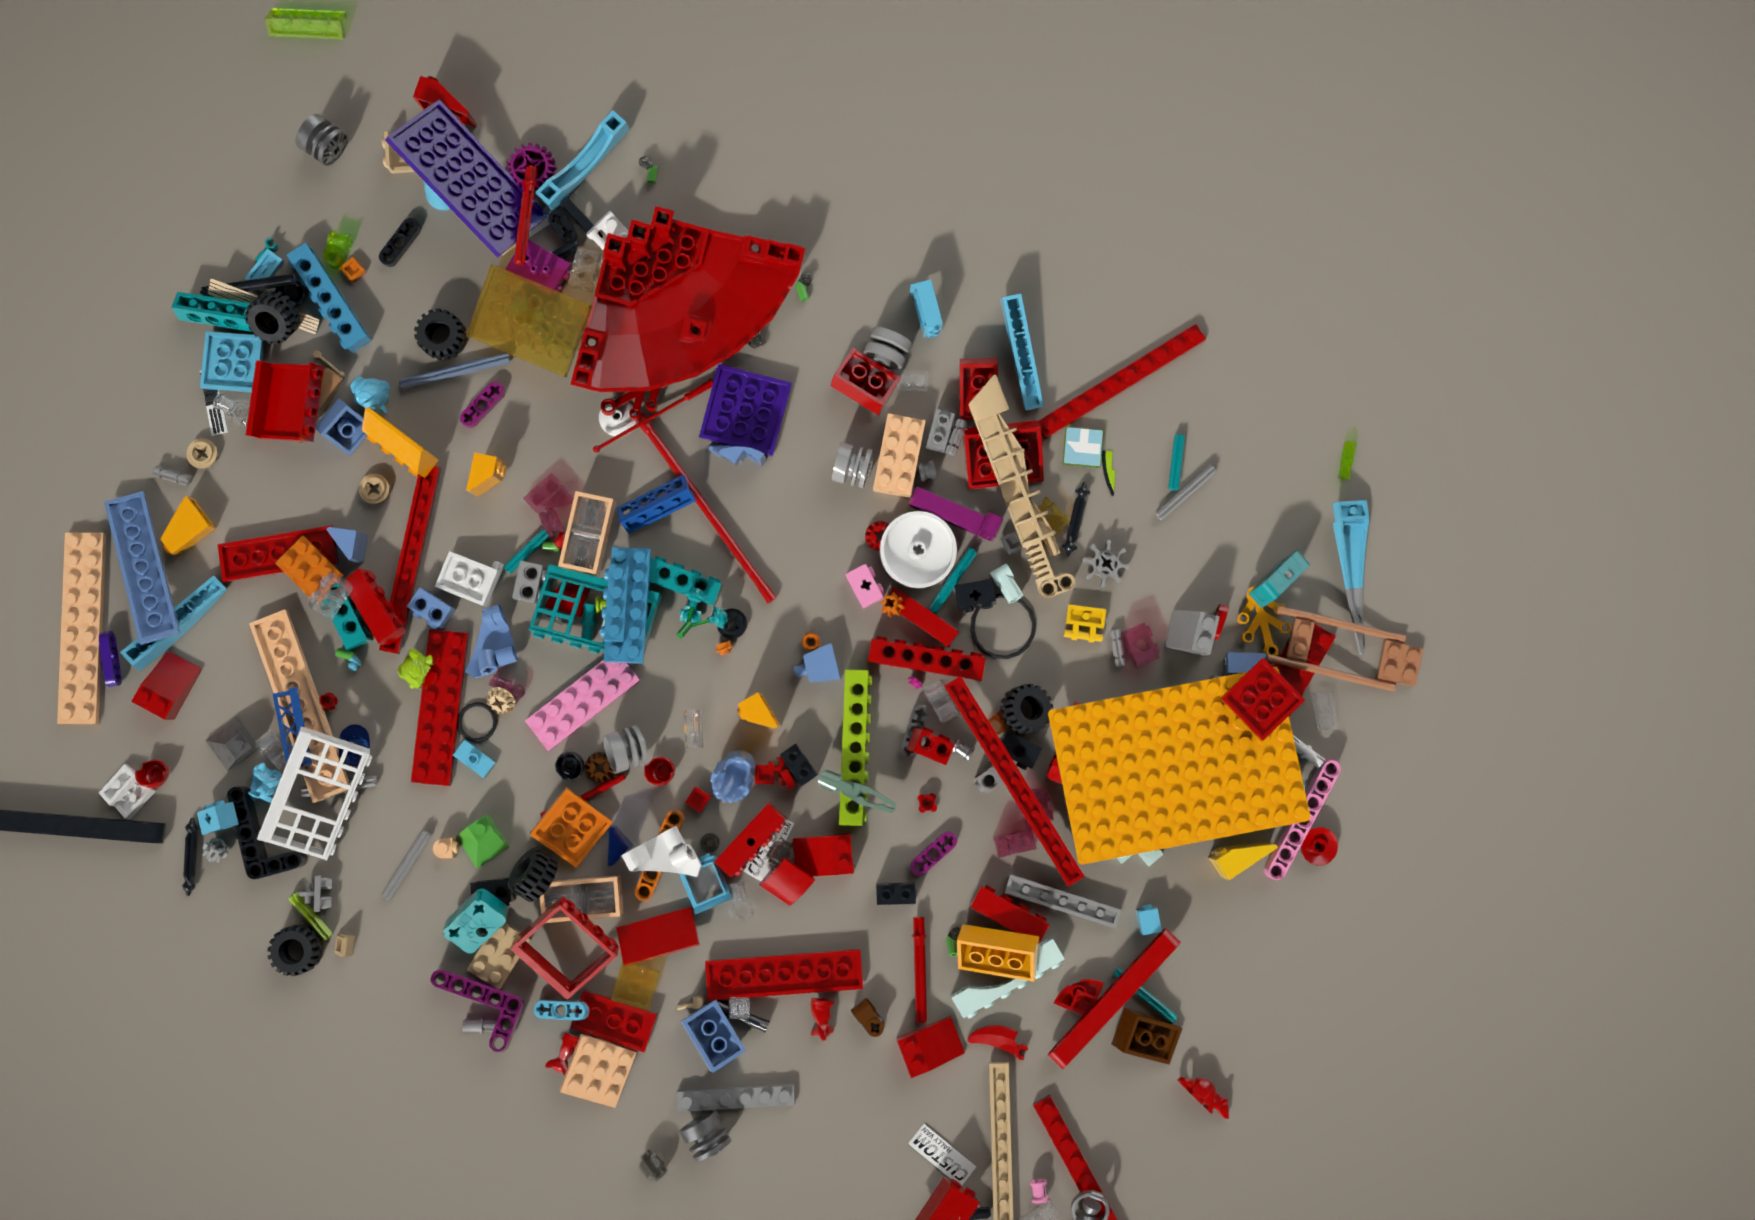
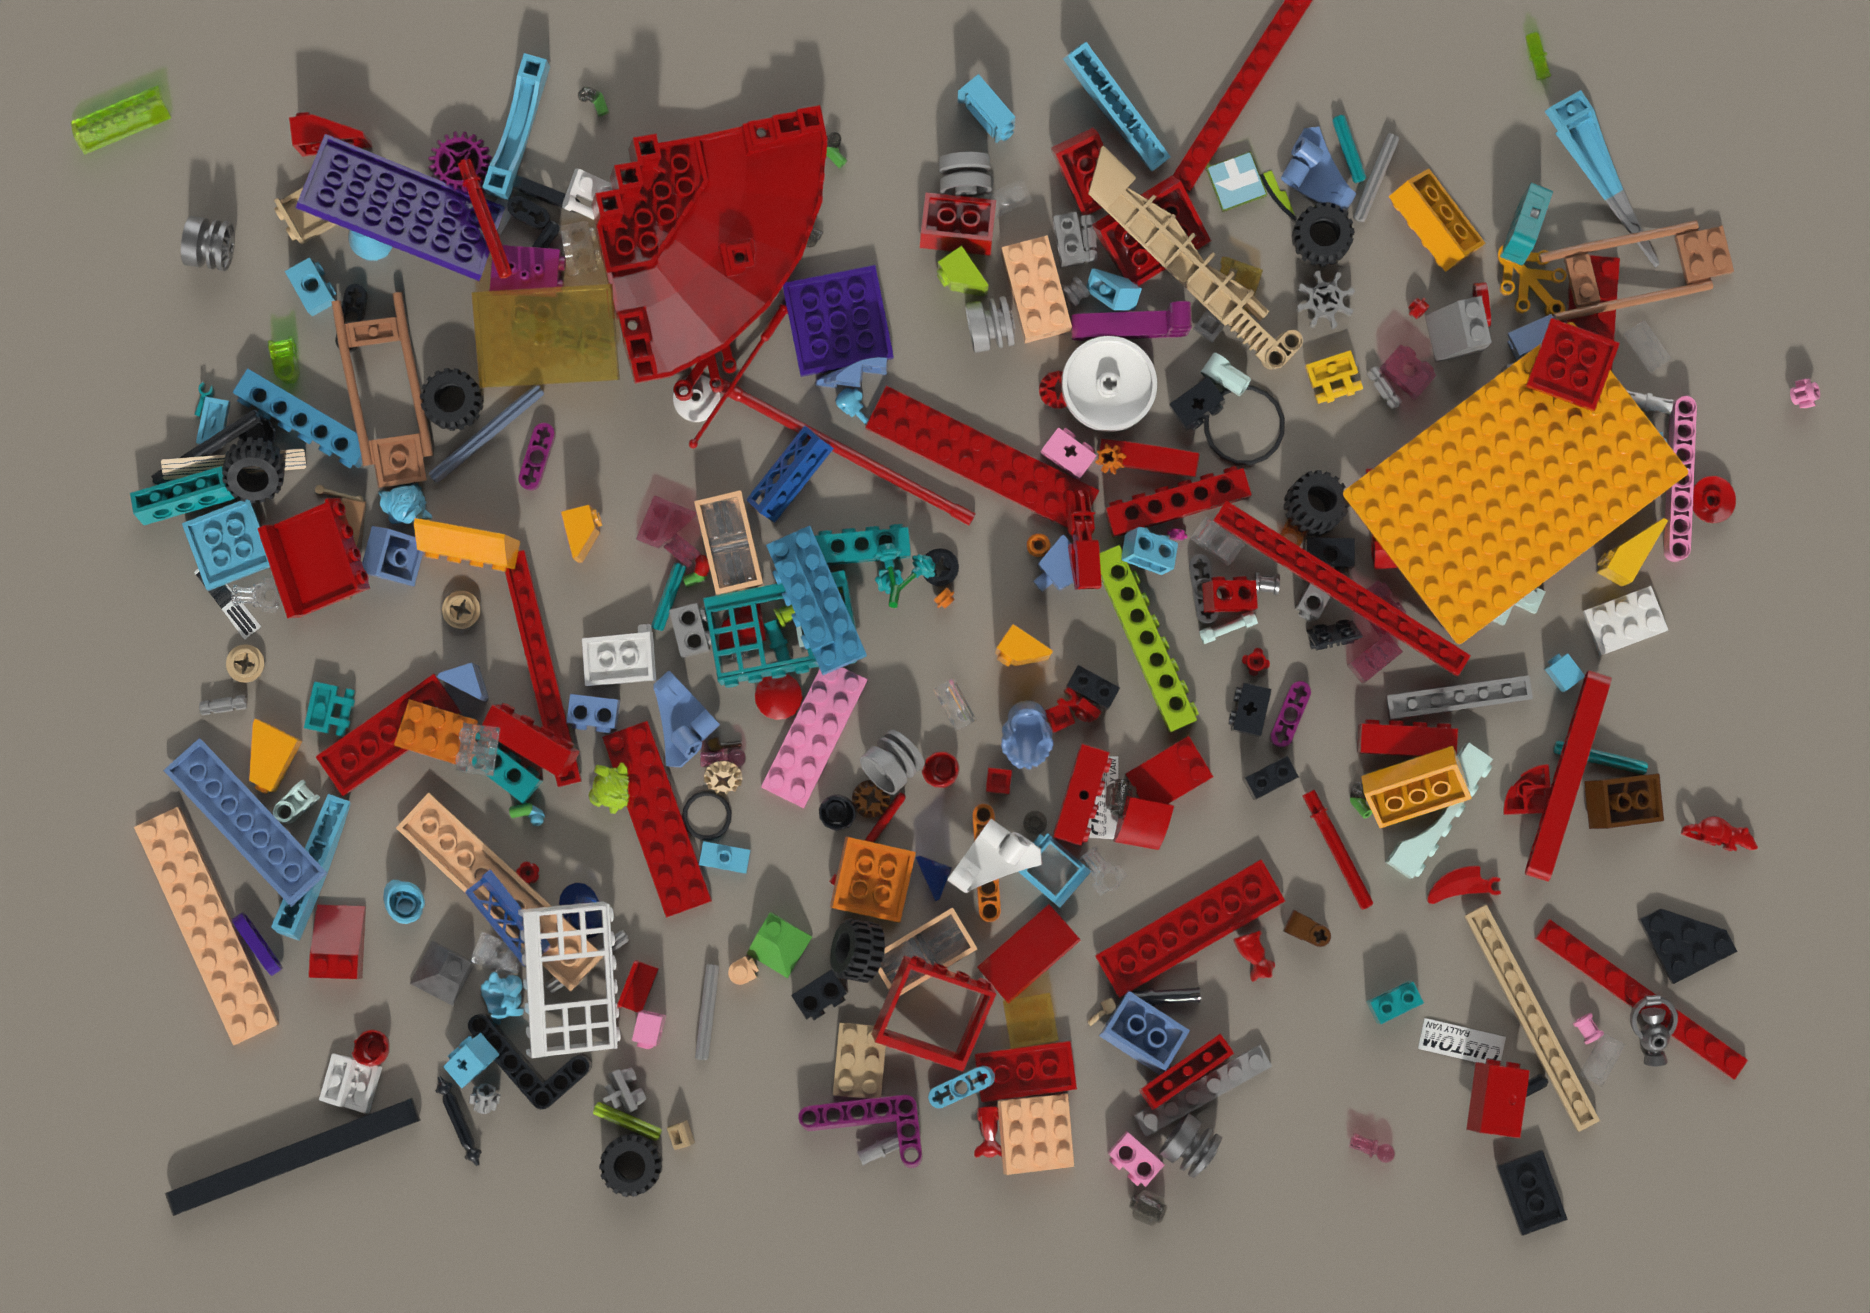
camera: 25 degrees left, 0 degrees up
(189, 570) = (296, 802): none -> light aqua piece
(227, 684) = (407, 906): none -> medium azure hair
(241, 510) = (322, 706): none -> teal plate
(352, 269) = (312, 374): orange tile -> none
(356, 857) = (648, 1029): none -> bright pink brick
(365, 822) = (638, 986): none -> red panel
(375, 198) = (301, 276): none -> medium azure brick
(382, 358) = (394, 458): none -> nougat plate
(475, 920) = (818, 1033): teal axle -> none
(507, 674) = (715, 745): none -> dark brown hand
(569, 662) = (778, 697): none -> red dish
(667, 1123) = (1139, 1155): none -> bright pink brick
(725, 474) = (850, 403): none -> medium azure piece
(728, 1079) = (1186, 1071): none -> red brick
(739, 1008) = (1158, 988): clear tile -> none
(801, 560) = (974, 455): none -> red plate
(833, 781) = (1143, 686): sand green arm -> none
(838, 664) = (1083, 553): none -> red arm
(845, 1208) = (1384, 1152): none -> clear pink pin
(848, 418) = (961, 274): none -> lime slope
(885, 689) = (1149, 555): none -> medium azure brick
(906, 1102) = (1395, 1002): none -> teal brick
(916, 831) = (1259, 700): none -> black brick
(930, 1046) = (1390, 928): red slope -> none
(935, 769) = (1247, 619): none -> light aqua bar
(952, 580) = (1163, 400): teal axle -> none
(954, 483) = (1113, 290): none -> medium azure slope
(993, 811) = (1343, 631): none -> black hinge
(1076, 518) = (1268, 265): black wheel -> none
(1138, 504) = (1334, 218): none -> black tyre
(1140, 1162) = (1685, 943): none -> black plate
(1143, 468) = (1315, 173): none -> medium blue panel
(1170, 602) = (1418, 308): none -> red plate
(1212, 903) = (1625, 620): none -> white plate
(1215, 544) = (1436, 219): none -> light orange slope
(1424, 801) = (1805, 393): none -> bright pink gear

